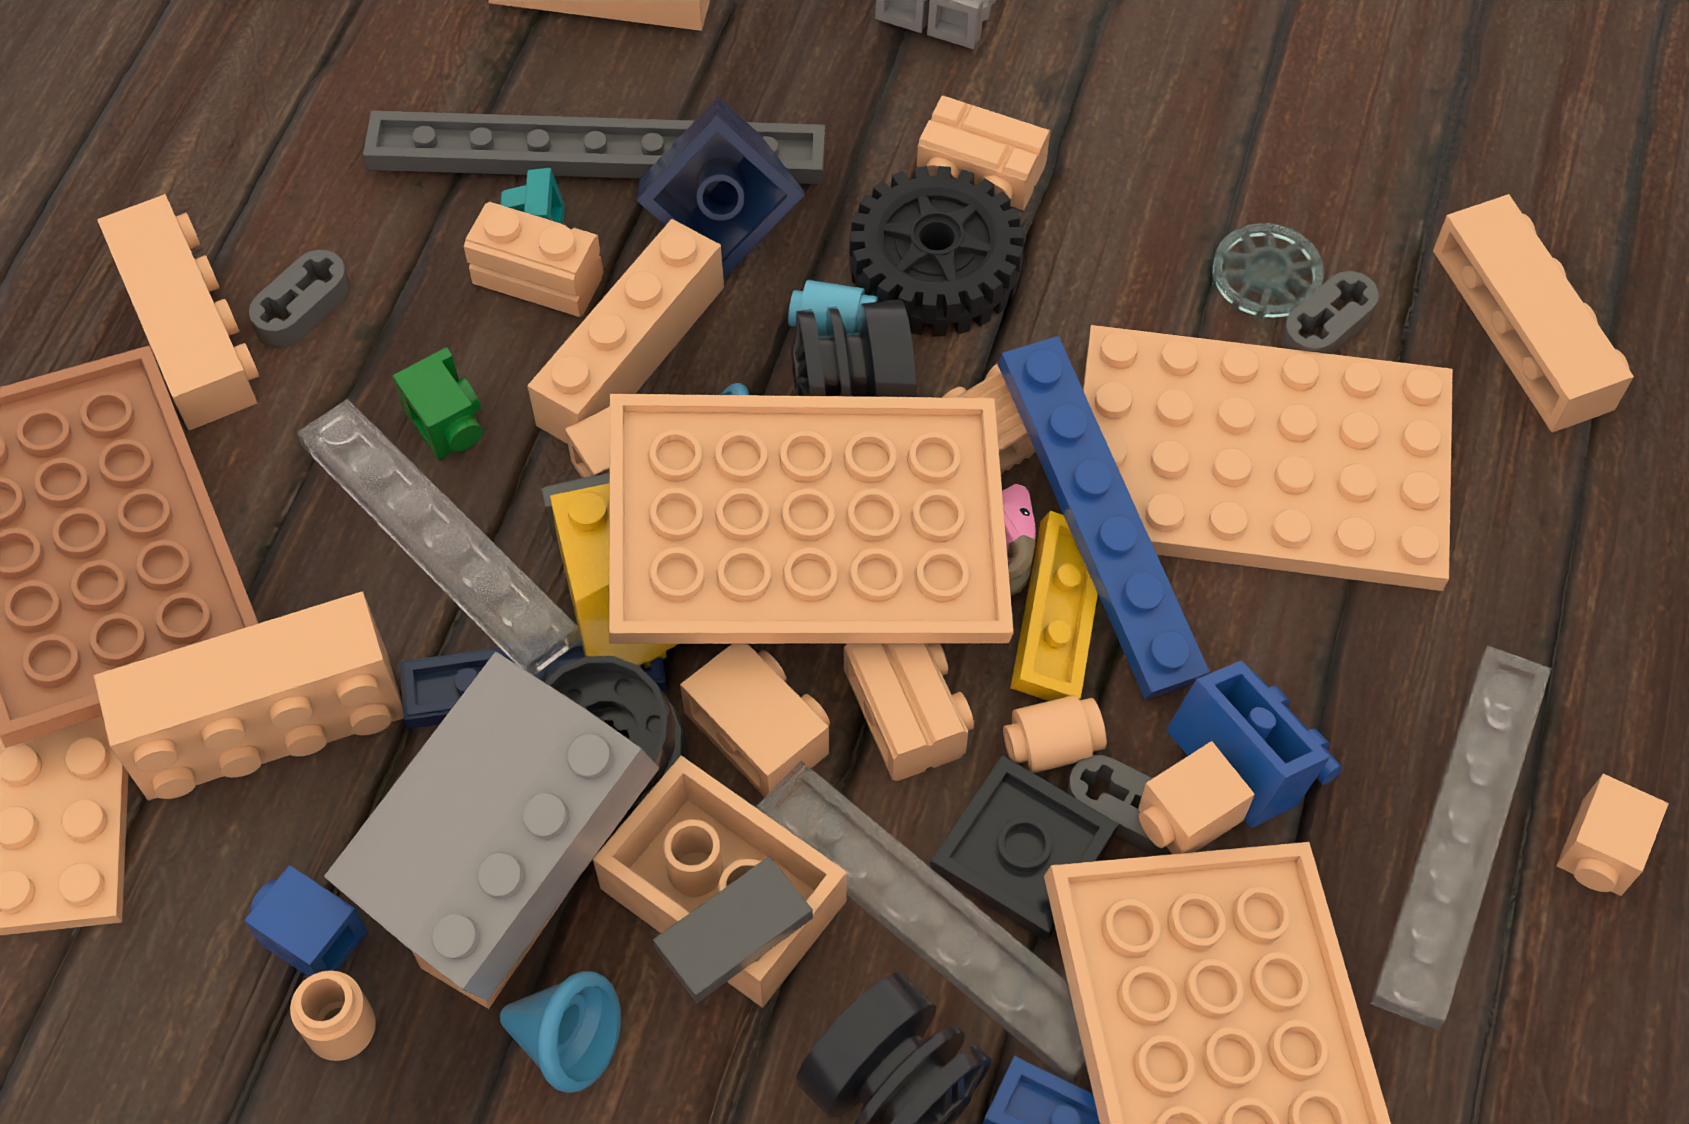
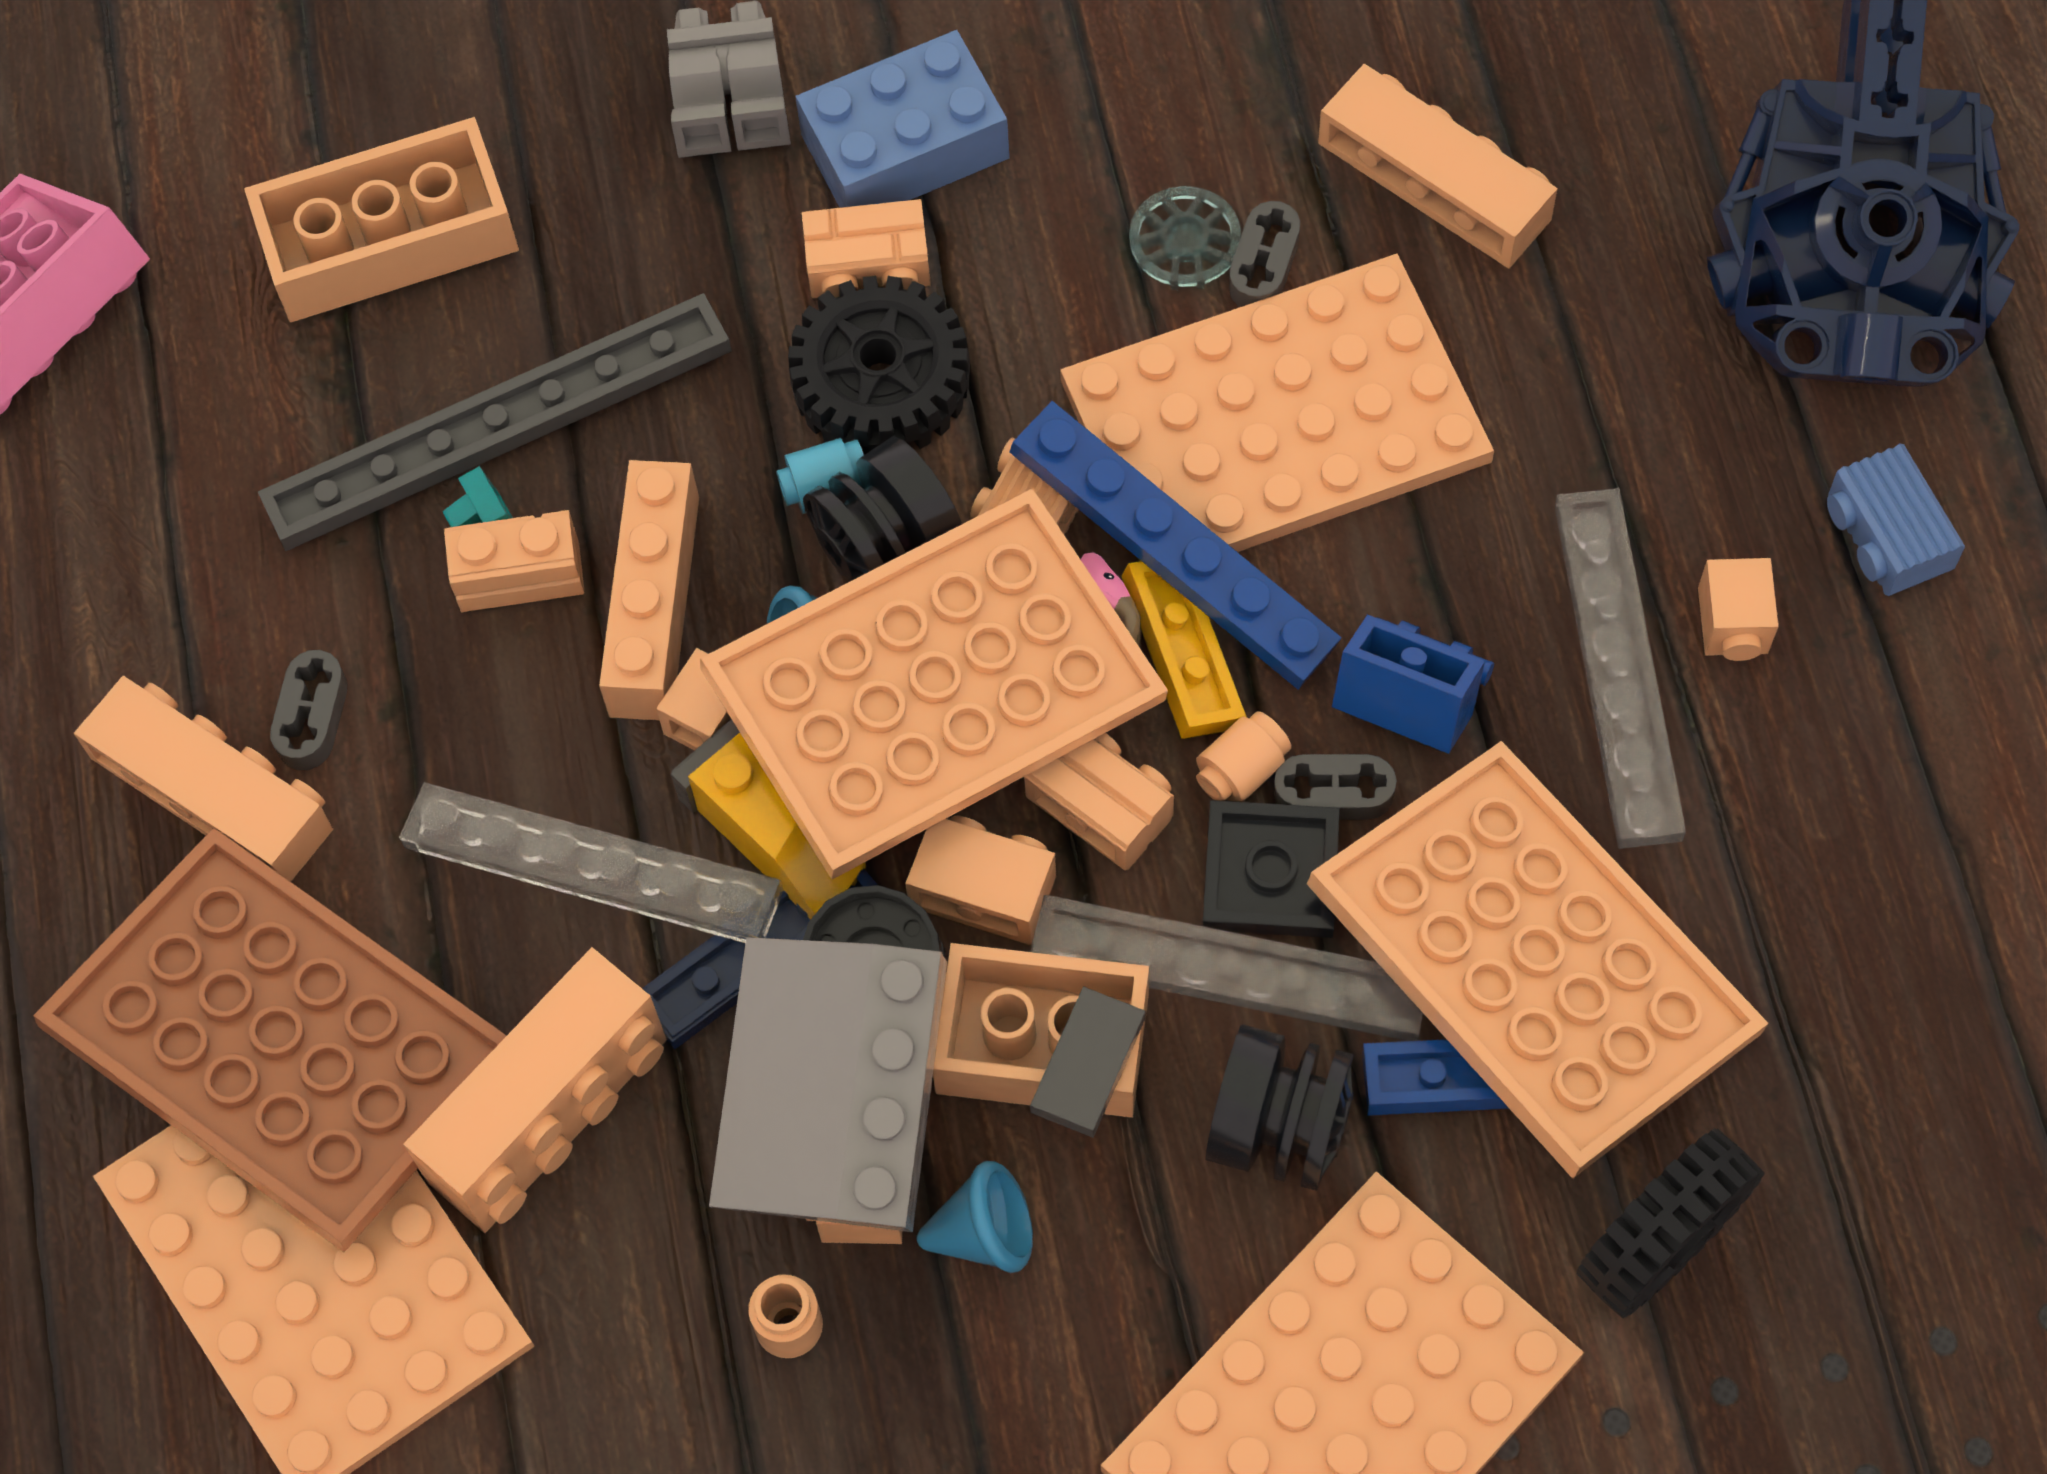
camera: 25 degrees left, 5 degrees up
(304, 923) = (706, 1258): blue brick -> none
(440, 404) = (517, 744): green brick -> none
(721, 183) = (648, 401): dark blue slope -> none
(1076, 69) = (904, 124): none -> medium blue brick
(1194, 802) = (1394, 757): light nougat brick -> none

